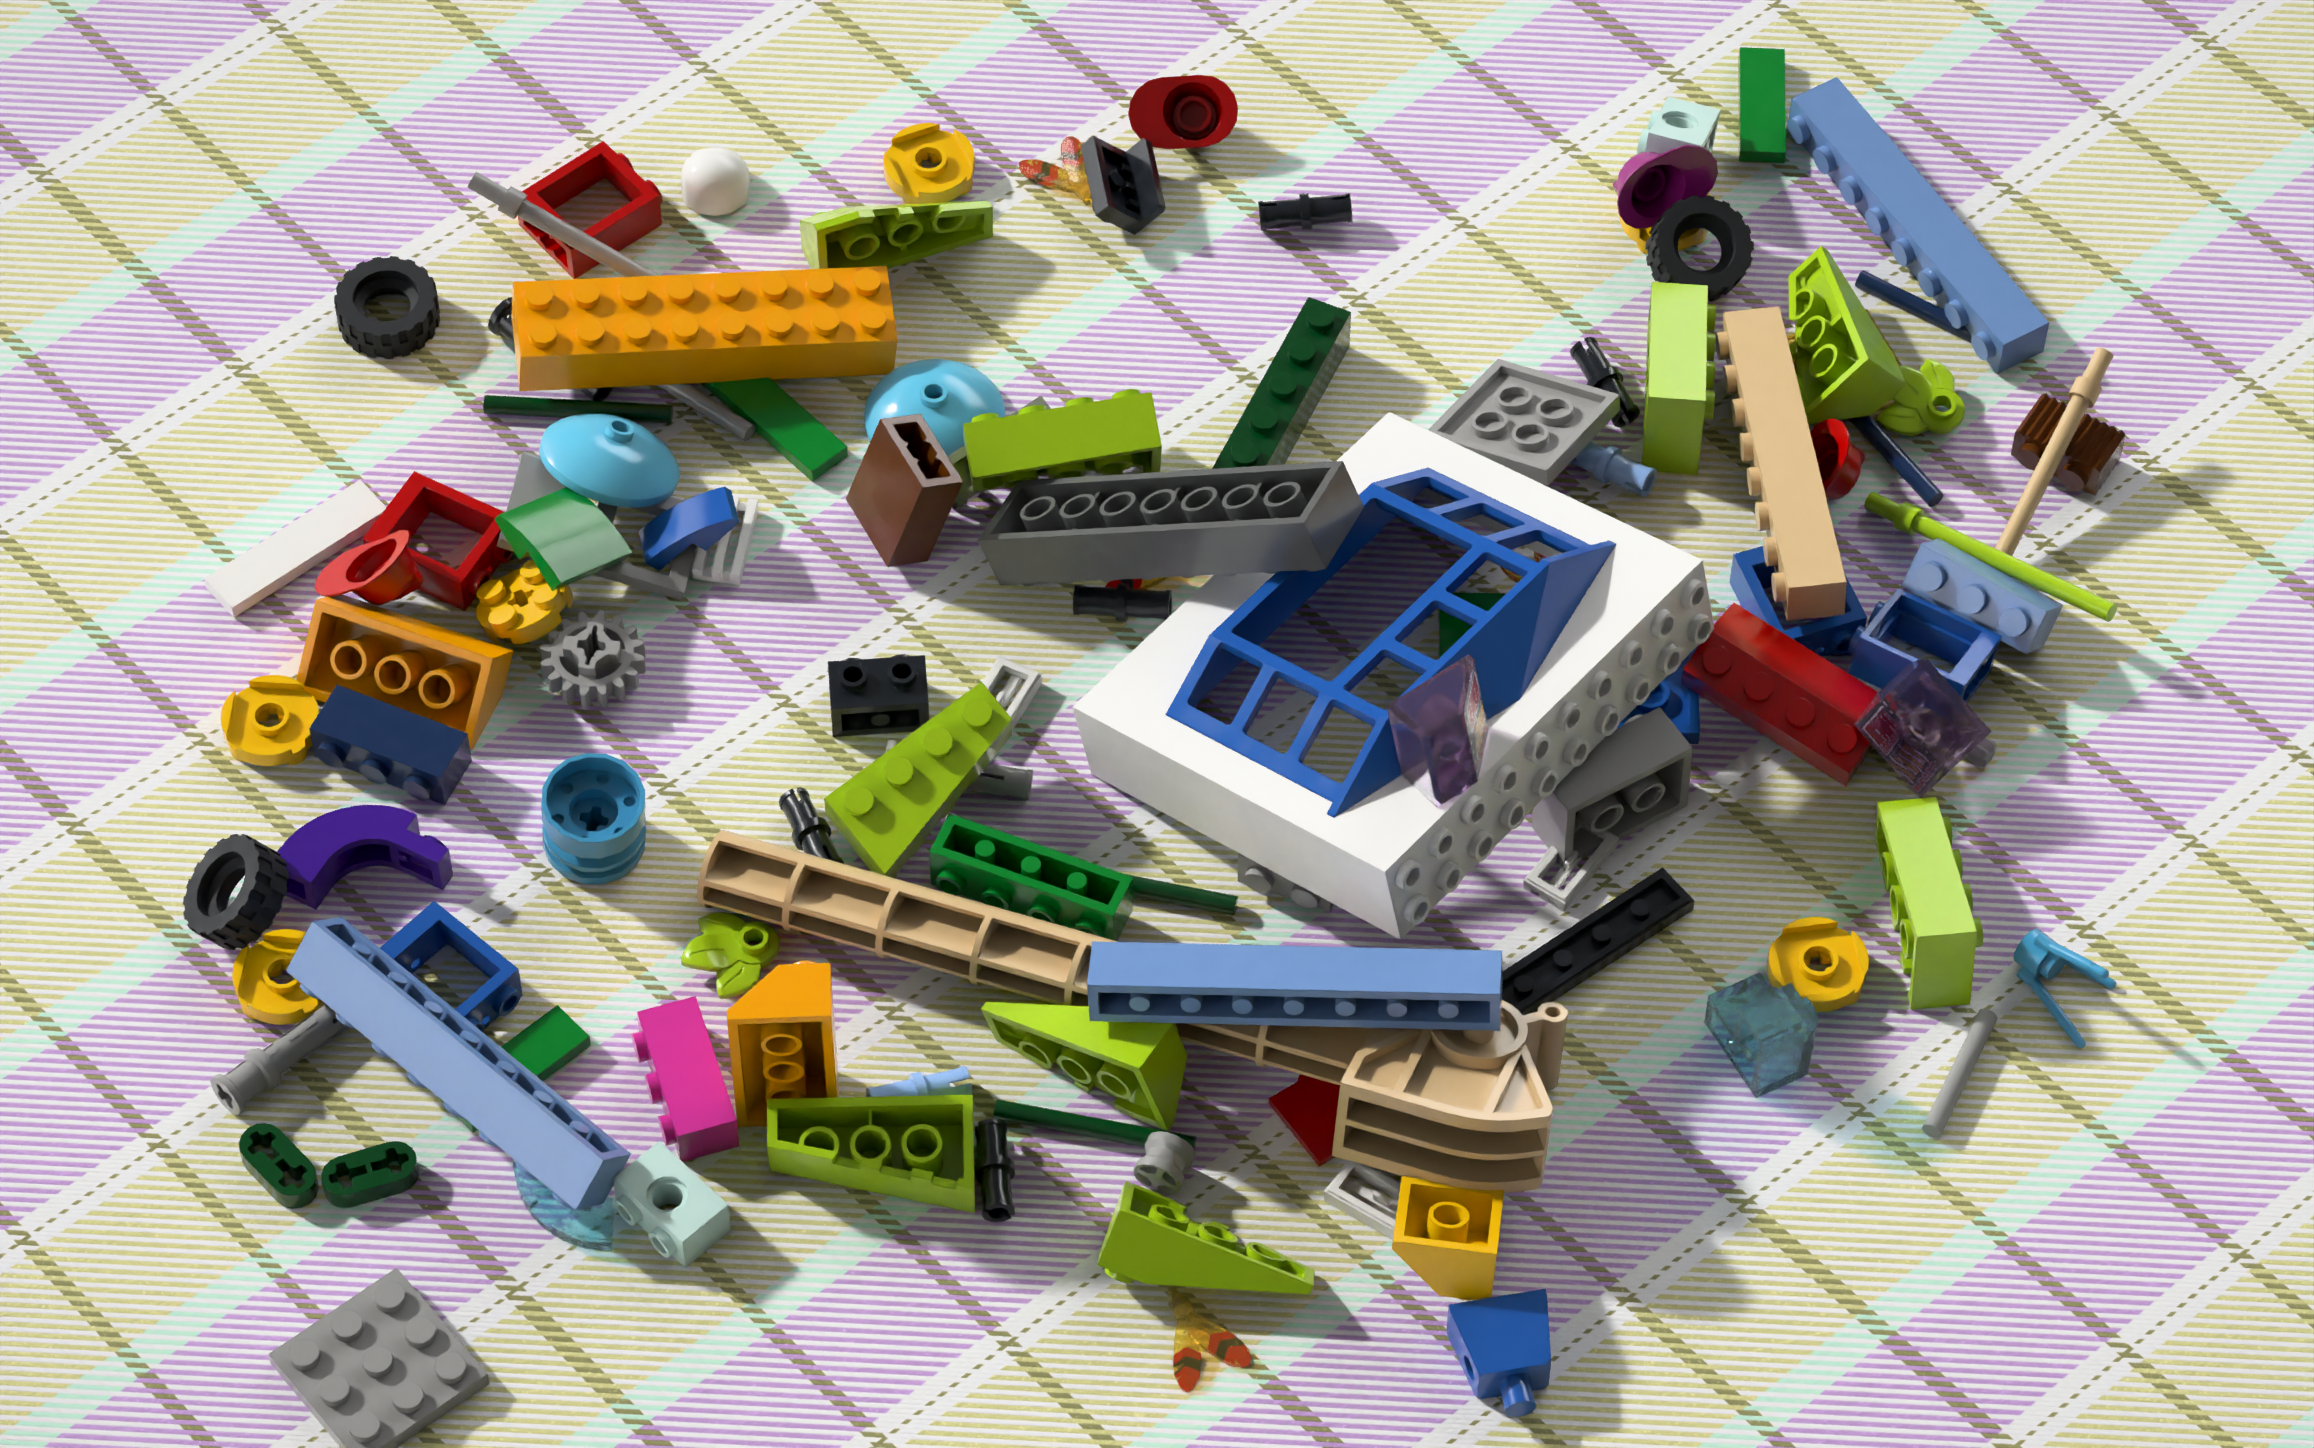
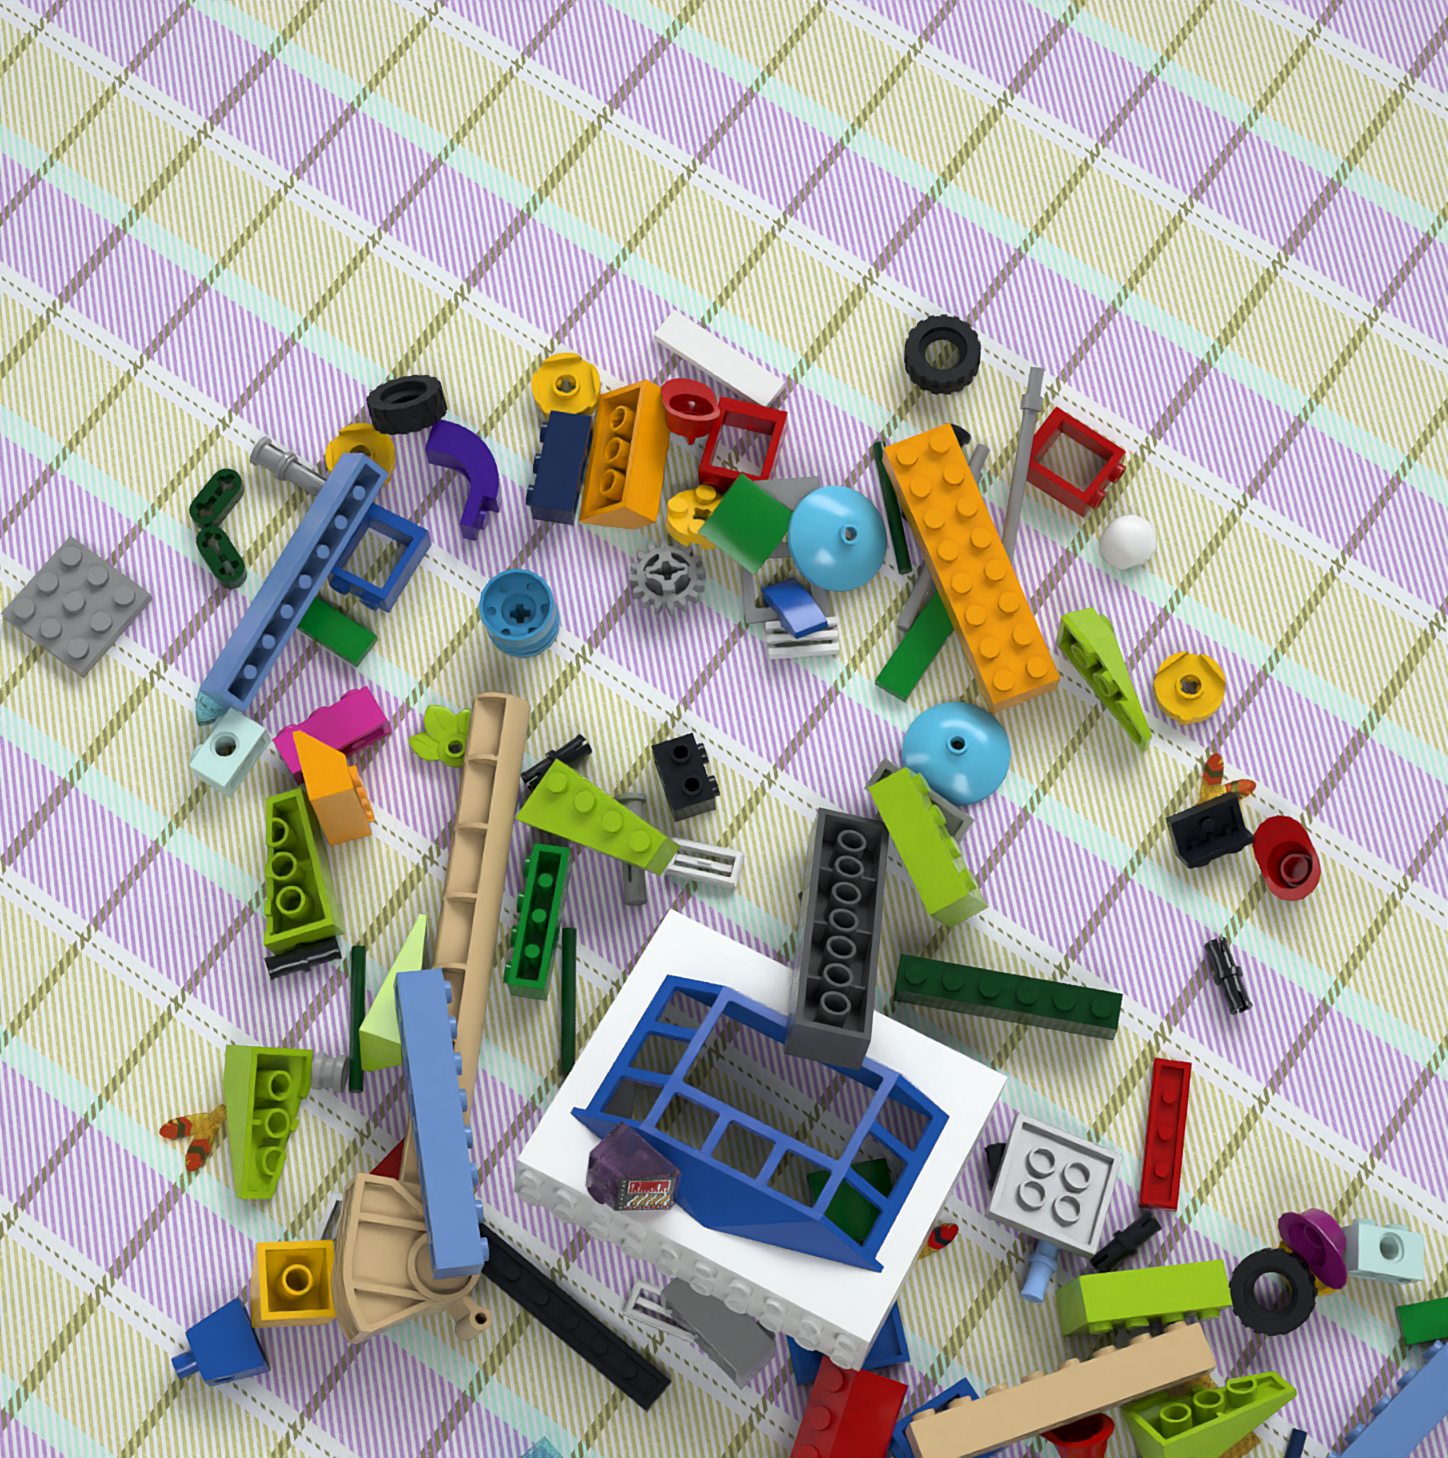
camera: 80 degrees right, 15 degrees up
(904, 490) = (853, 744): reddish brown brick -> none
(925, 1085) = (356, 891): light blue pin -> none
(1480, 319) = (1165, 1135): none -> red tile

